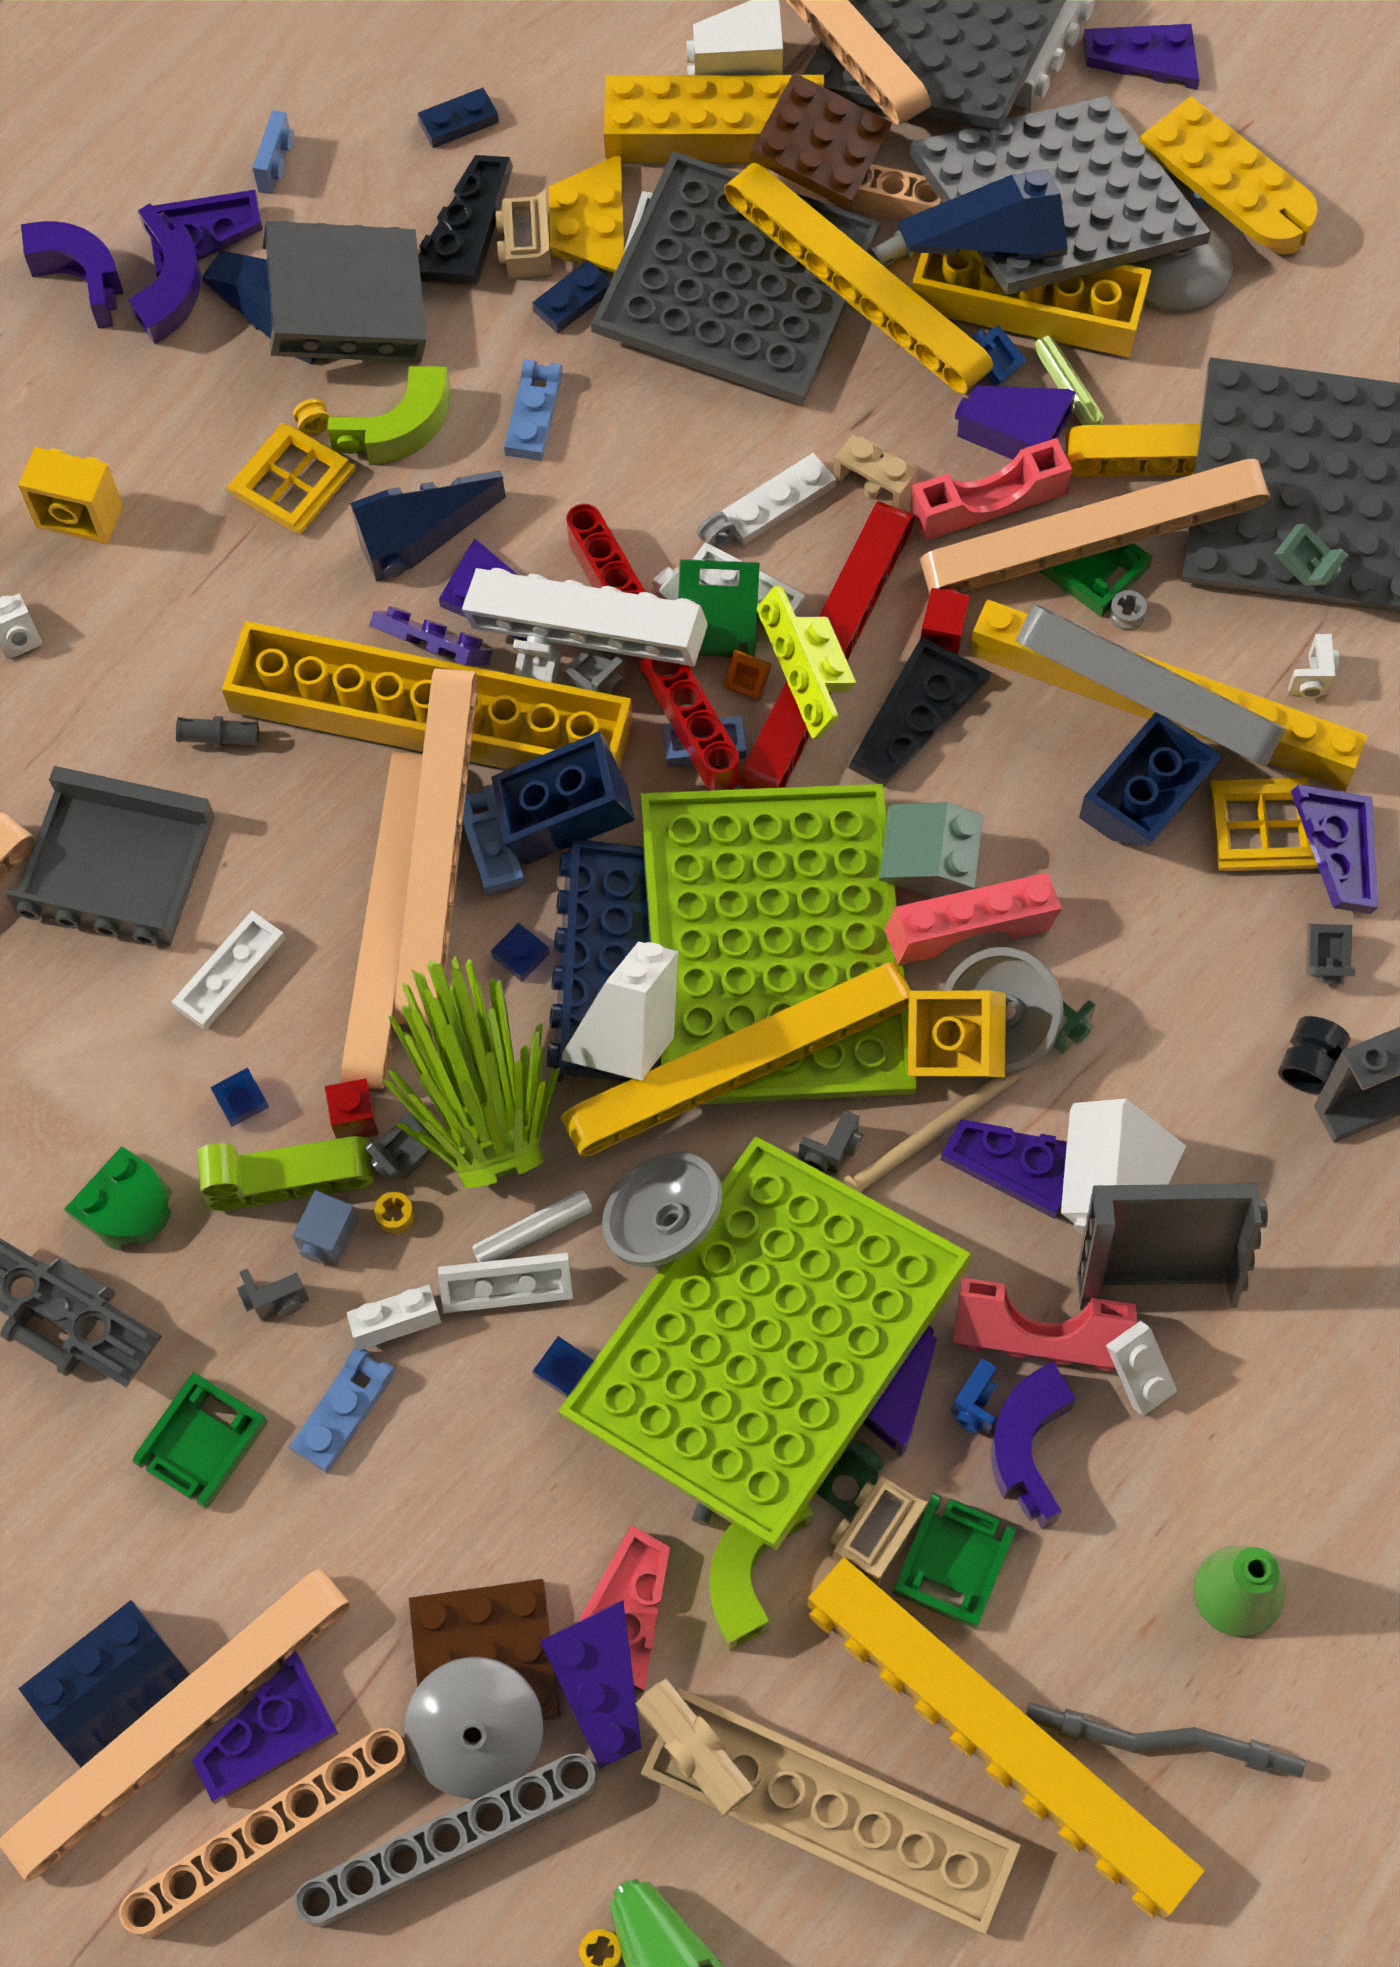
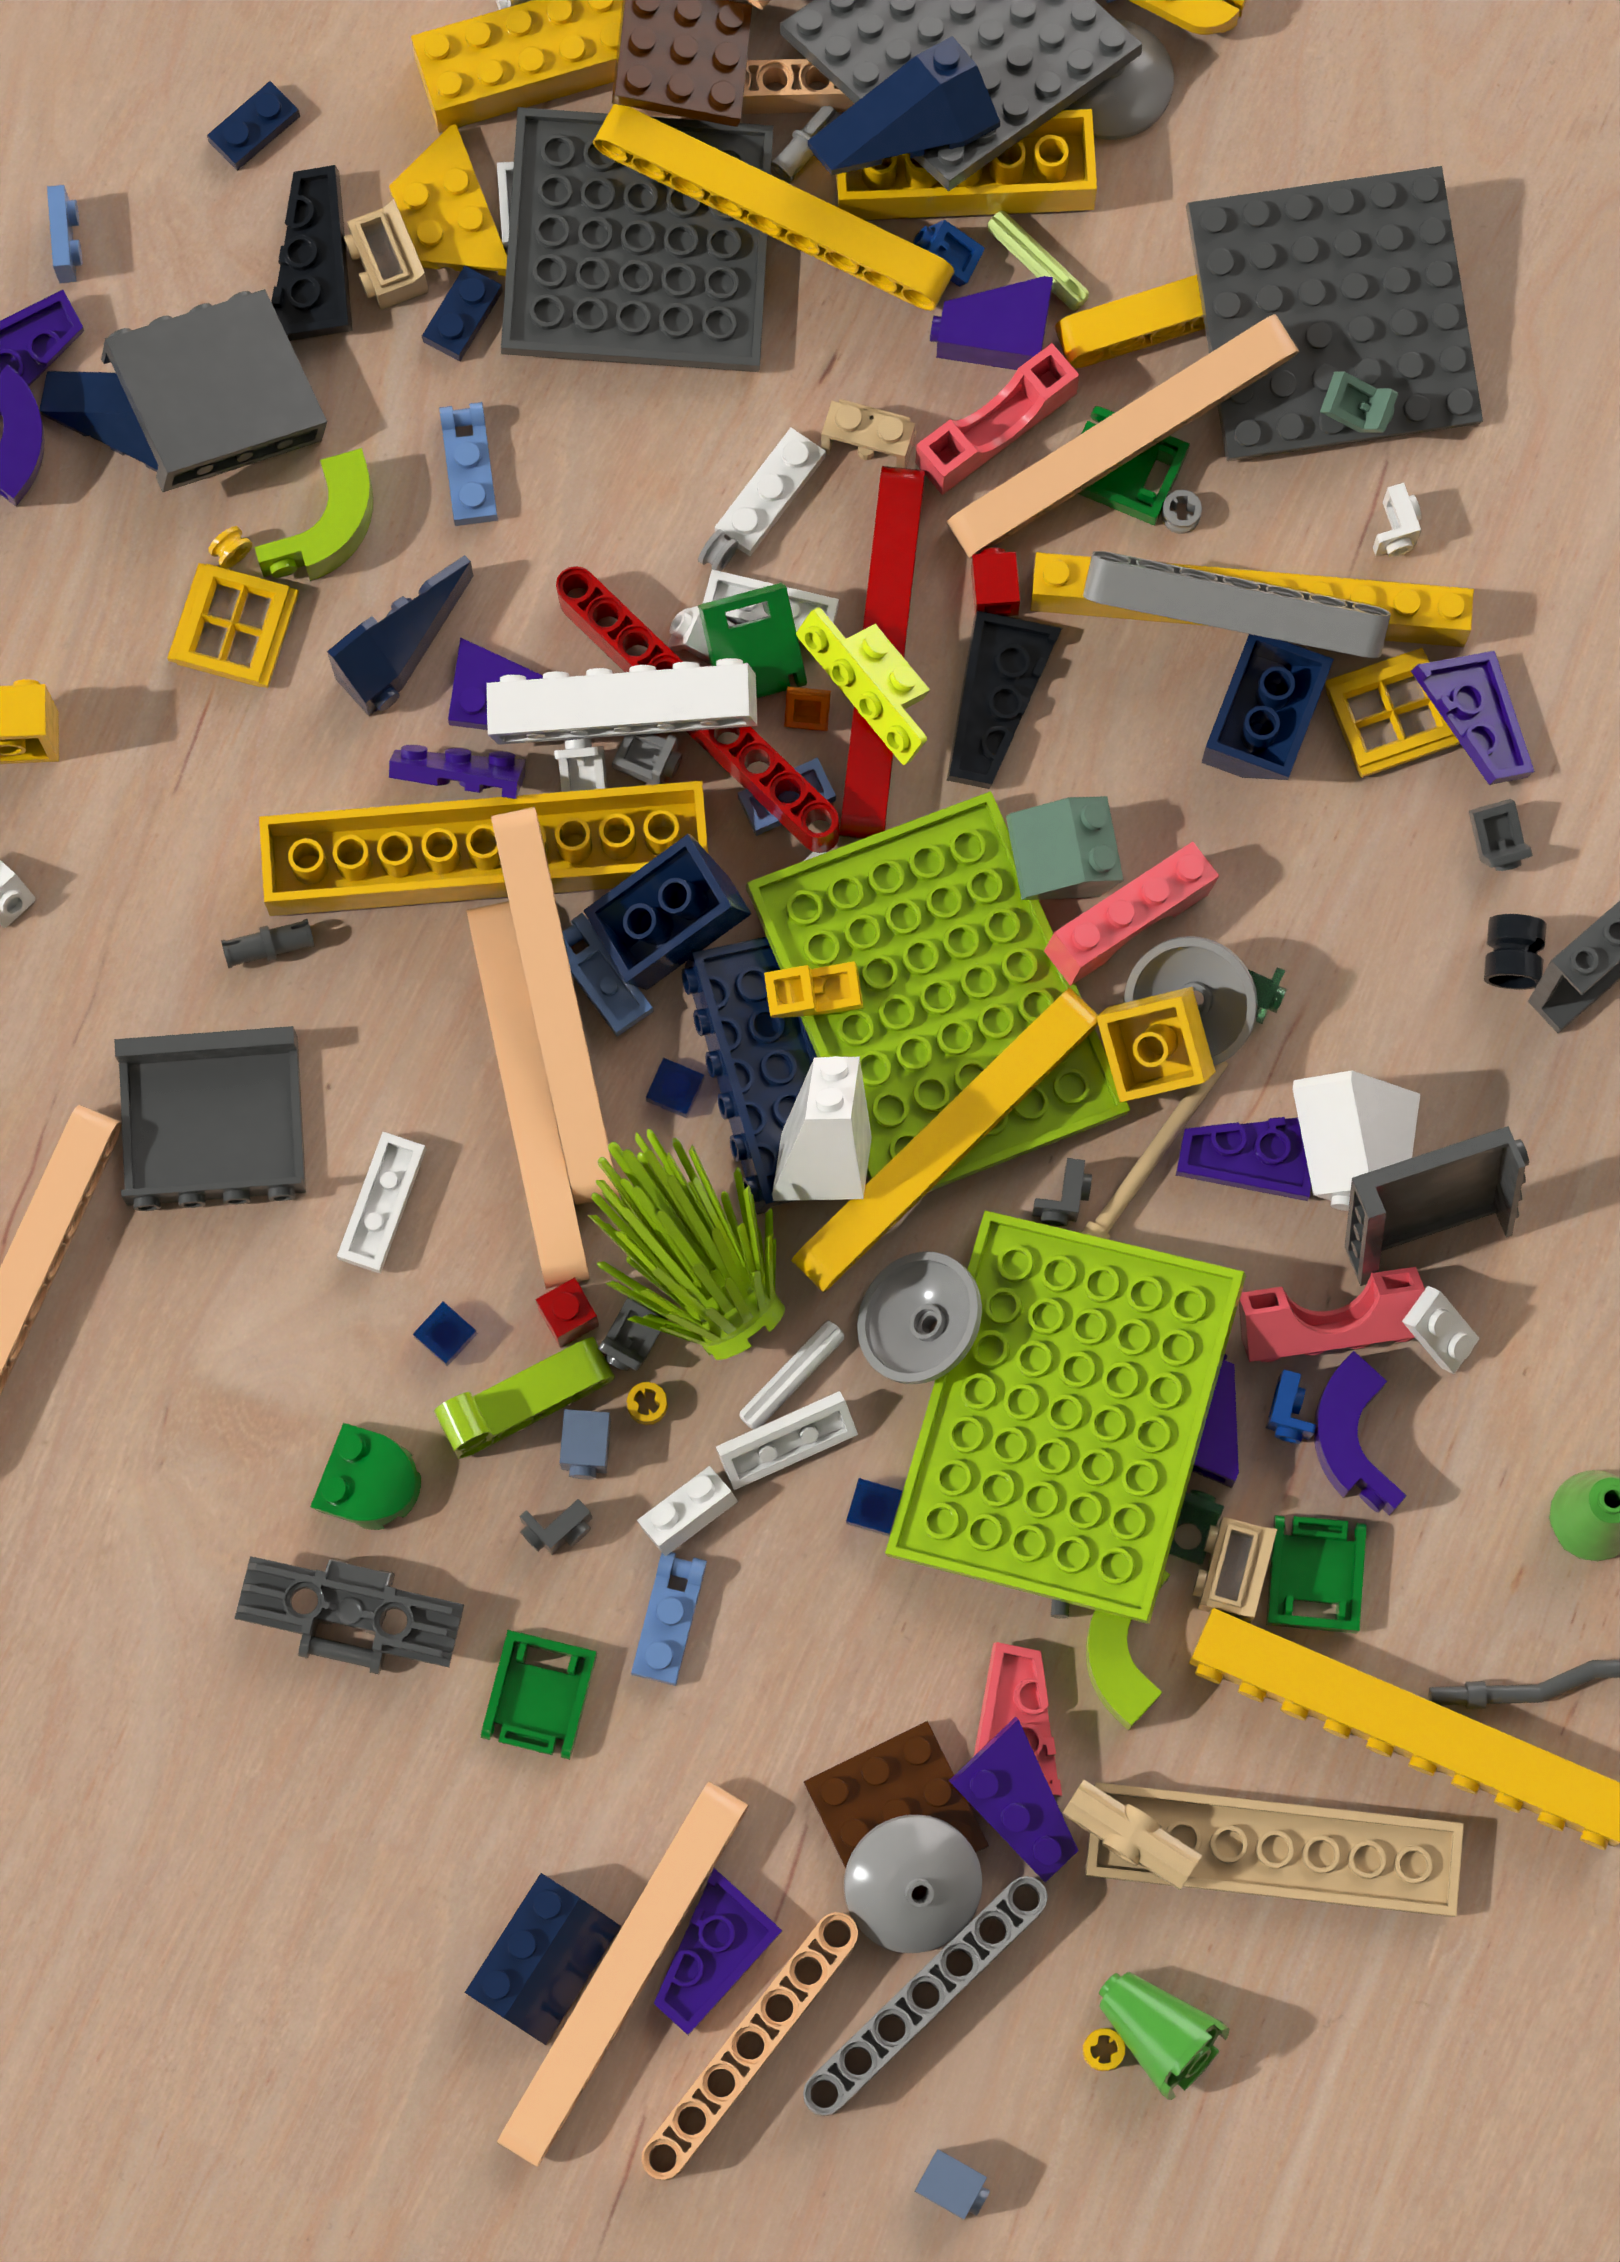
camera: 20 degrees left, 10 degrees up
(665, 899) = (813, 991): none -> yellow slope

